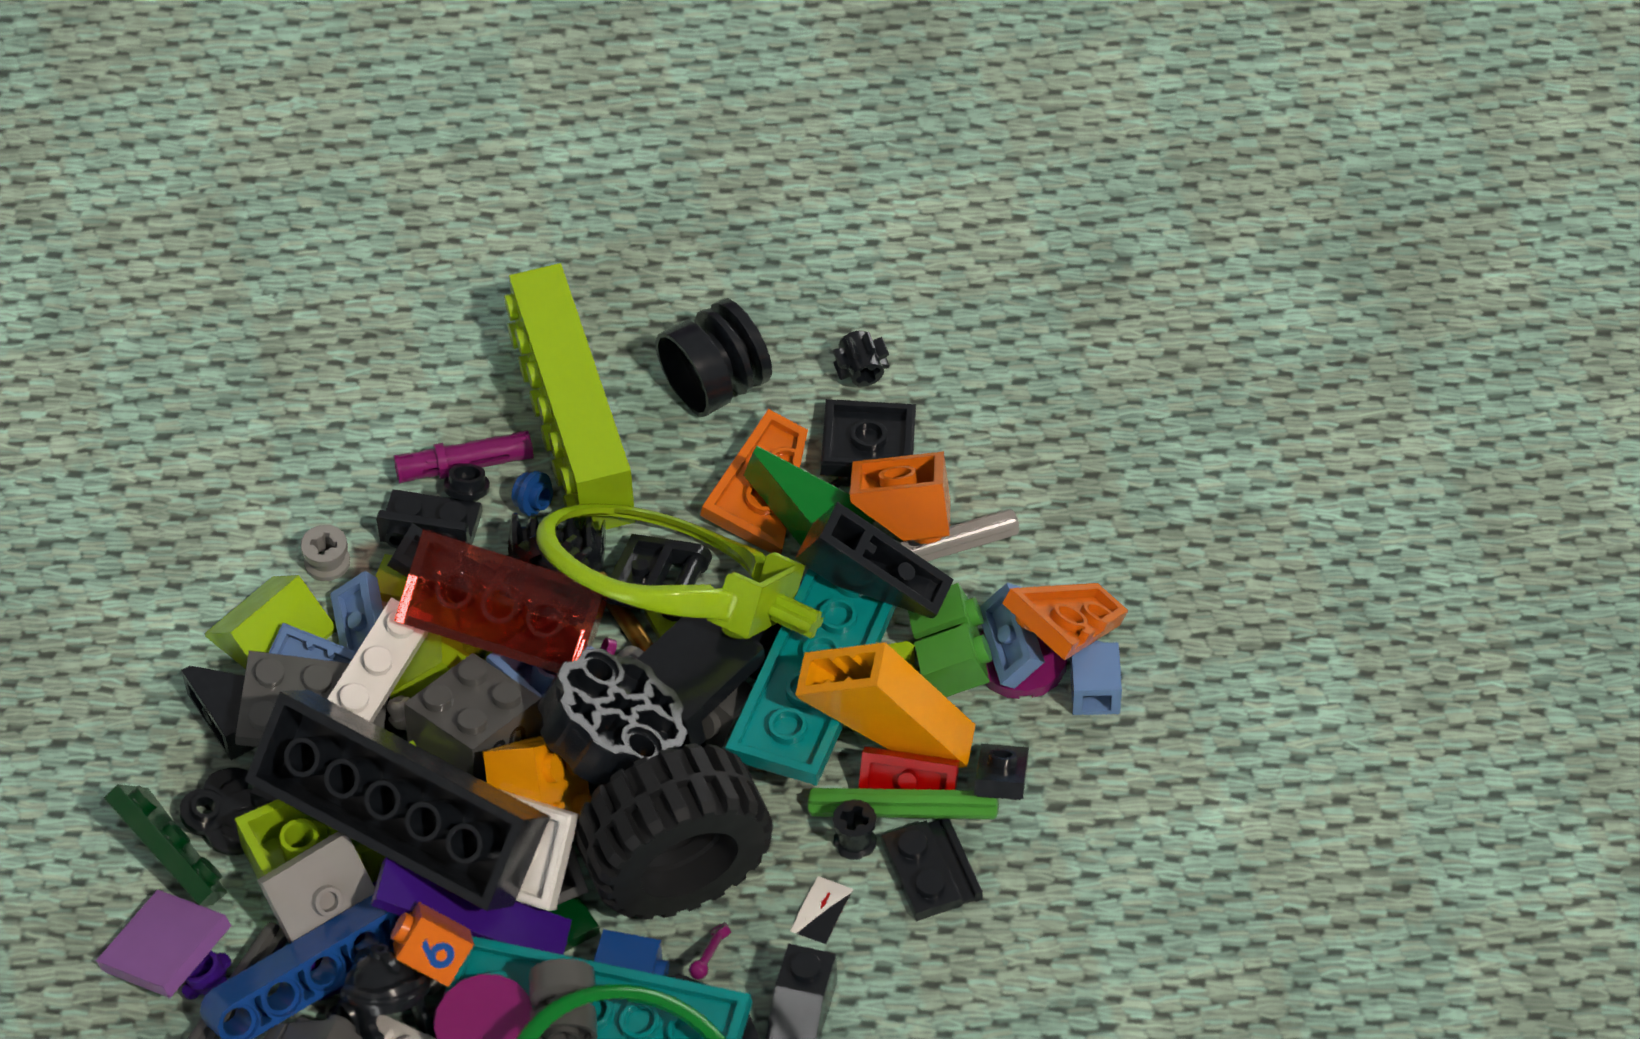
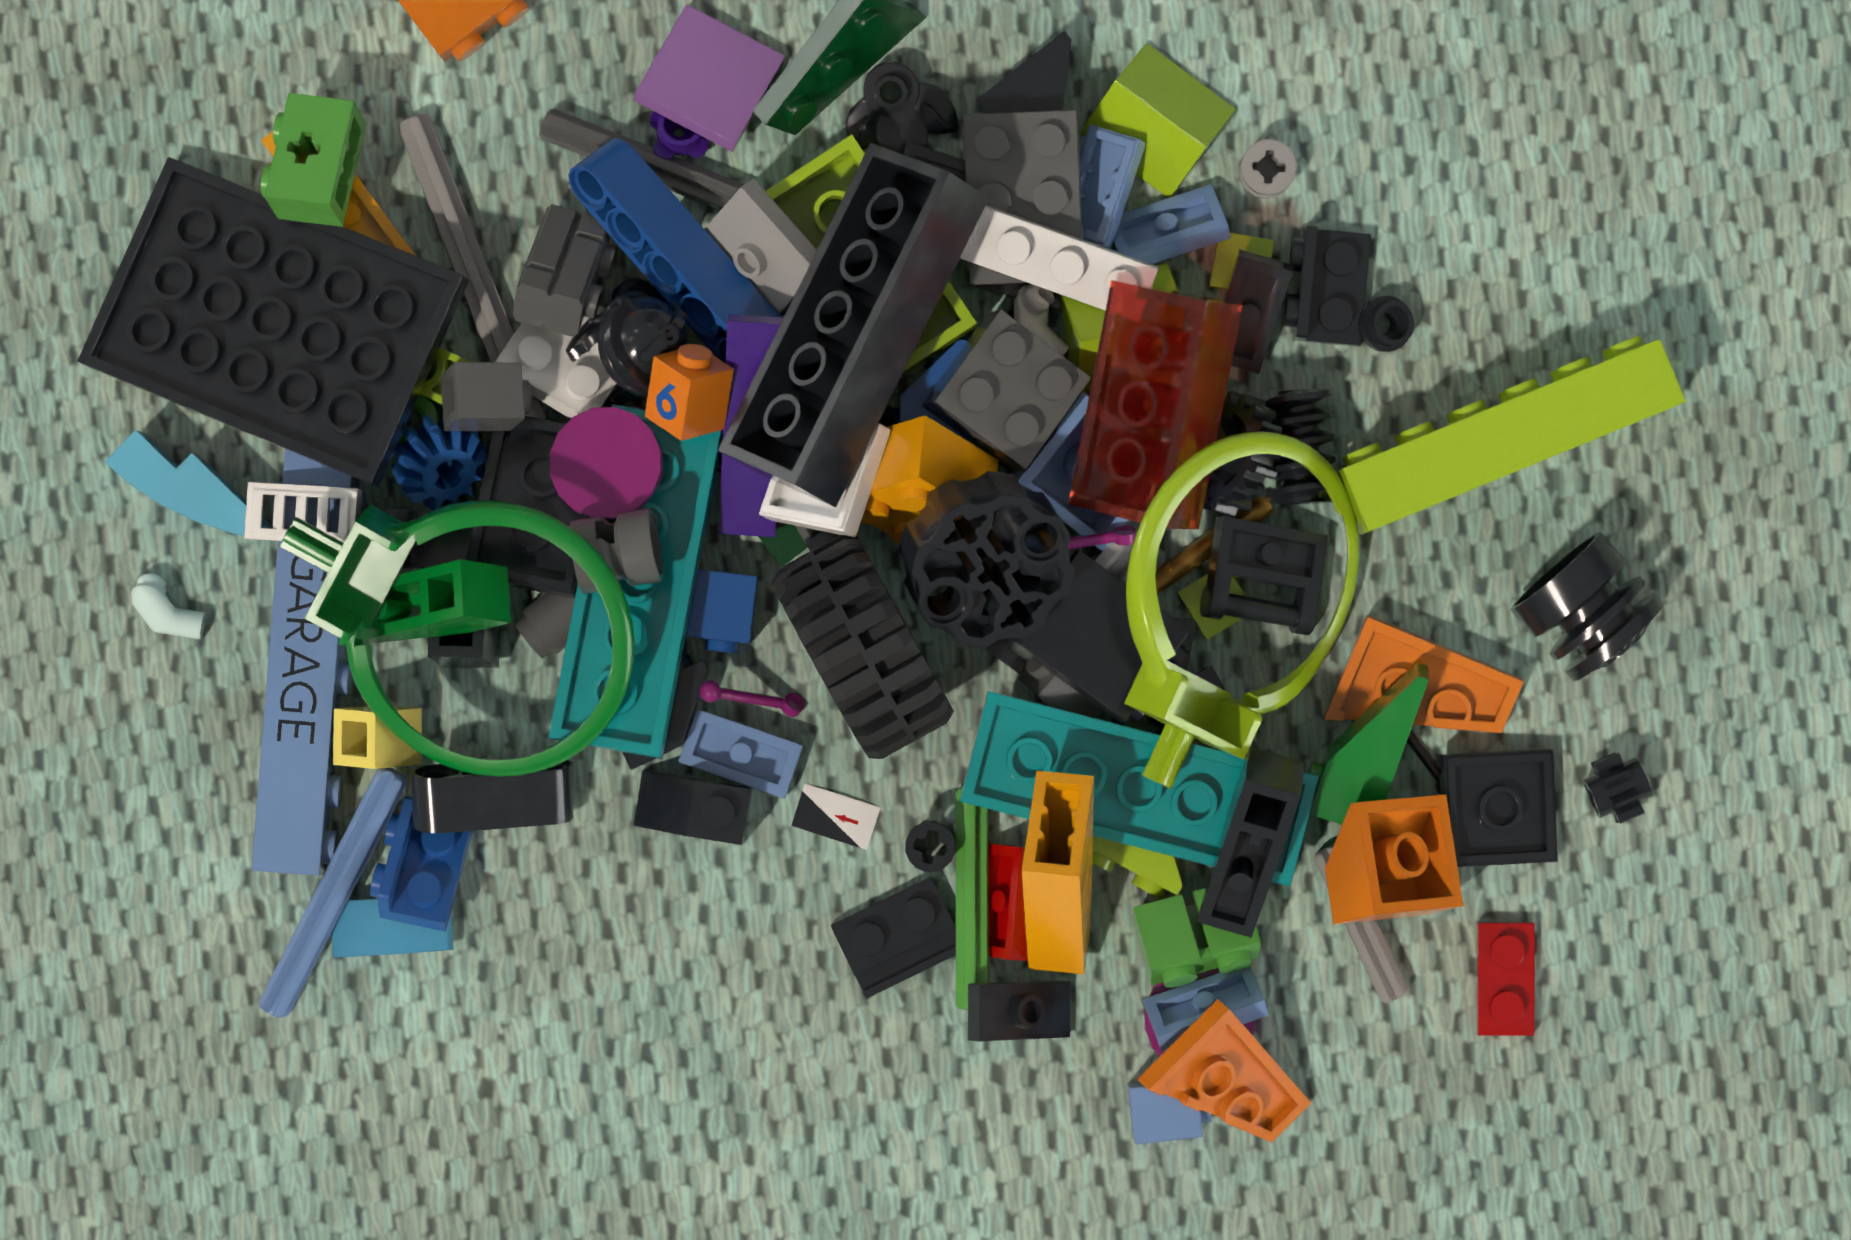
camera: 85 degrees right, 35 degrees up
(479, 452) = (1428, 311): magenta pin -> none
(532, 492) = (1378, 406): blue plate -> none
(758, 963) = (741, 753): none -> medium blue plate
(1007, 448) = (1505, 978): none -> red plate

